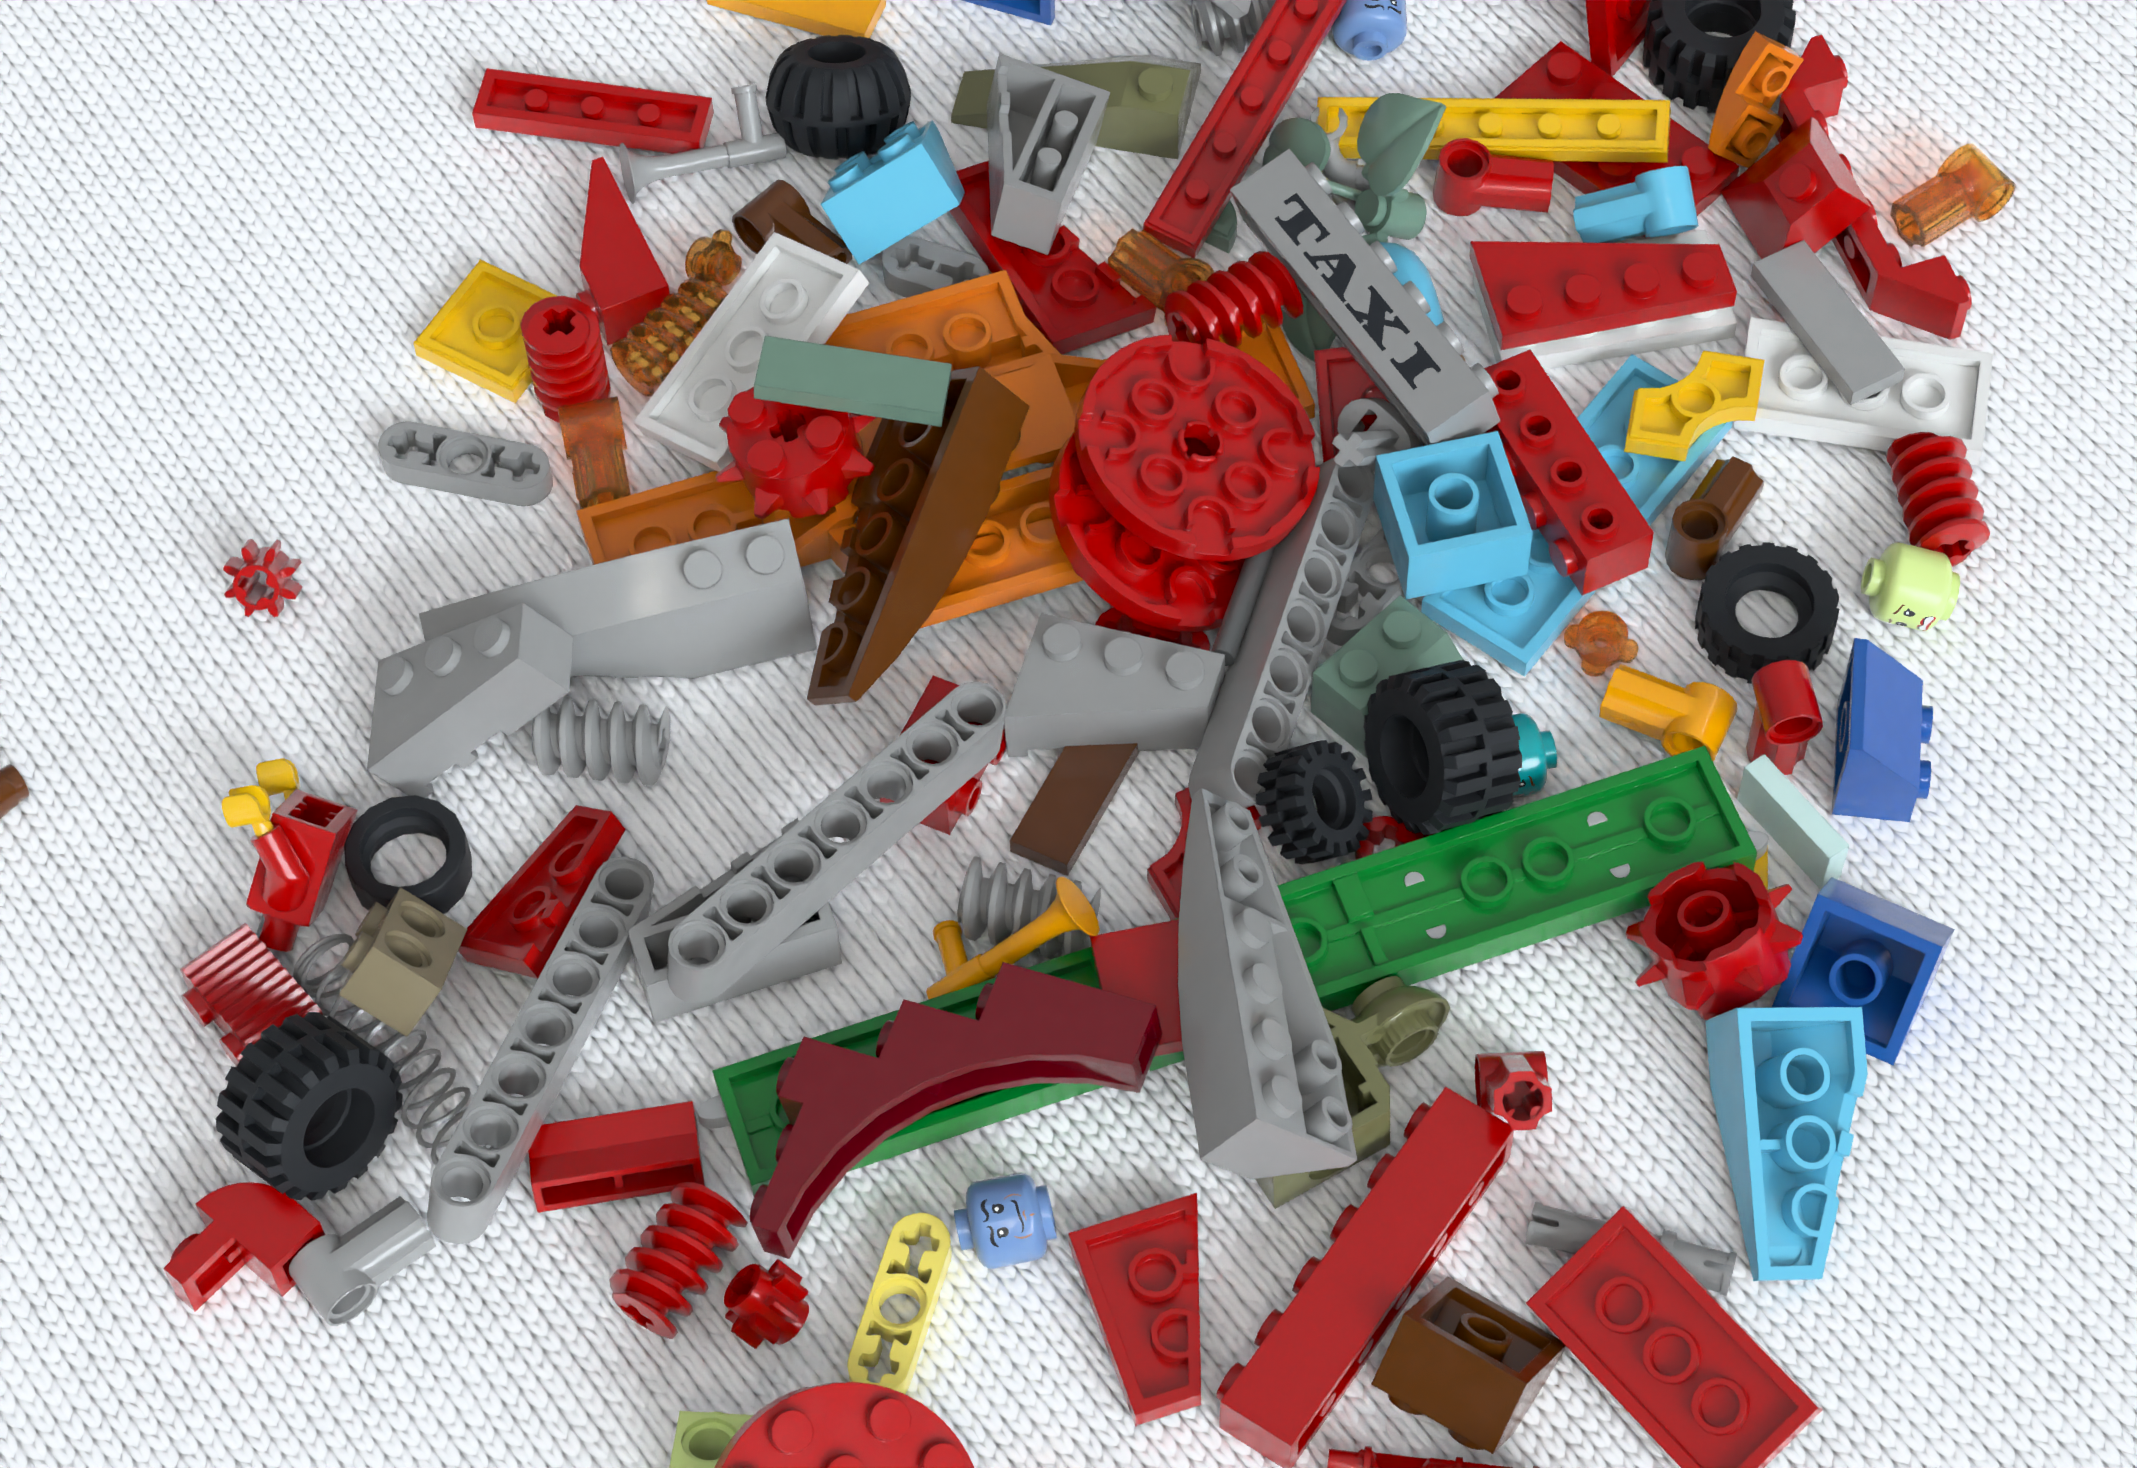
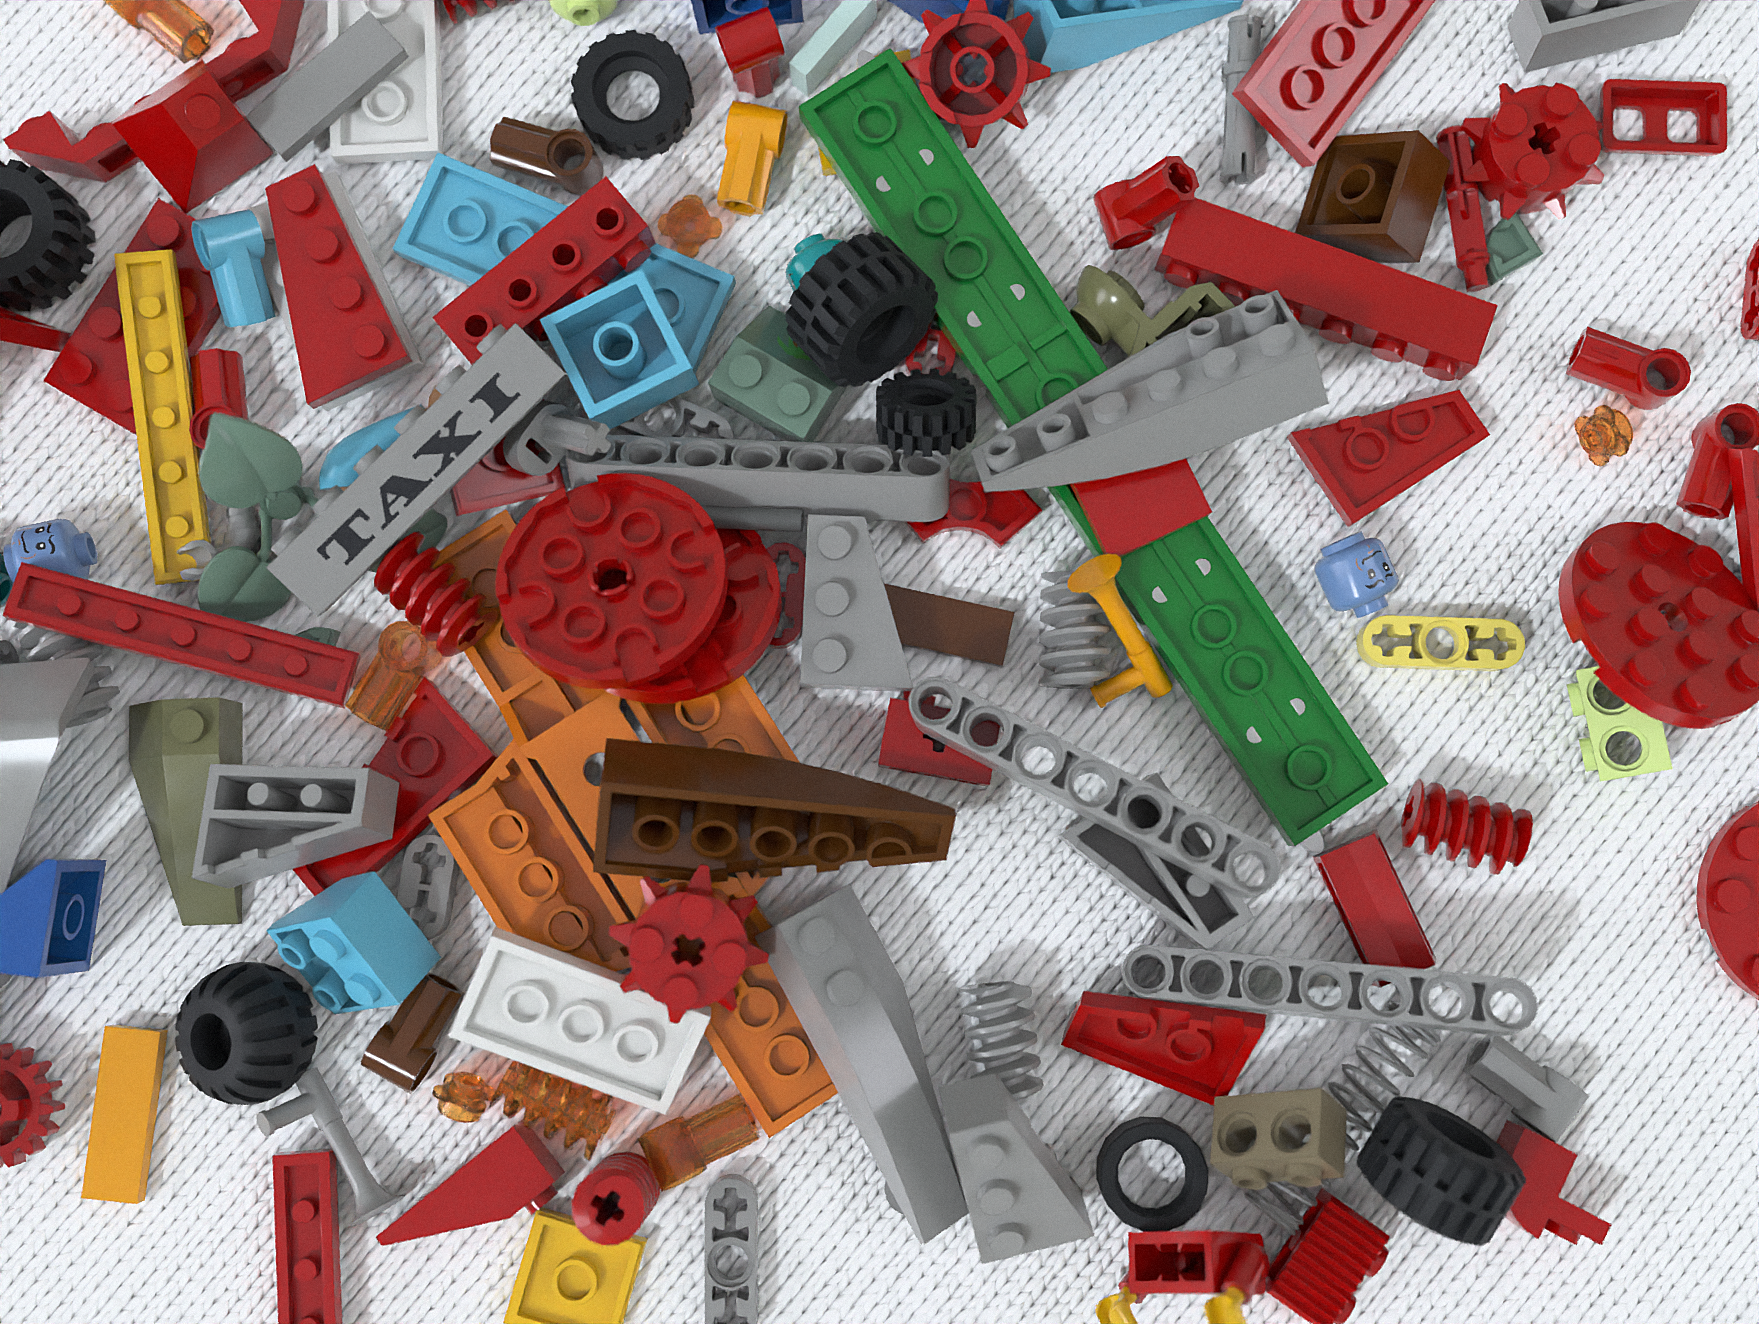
camera: 100 degrees left, 25 degrees up
(766, 1304) = (1479, 744): red gear -> none
(852, 381) = (641, 897): sand green tile -> none
(927, 1058) = (1316, 716): dark red arch -> none
(1672, 417) = (461, 199): yellow tile -> none
(1744, 115) = (108, 191): orange slope -> none

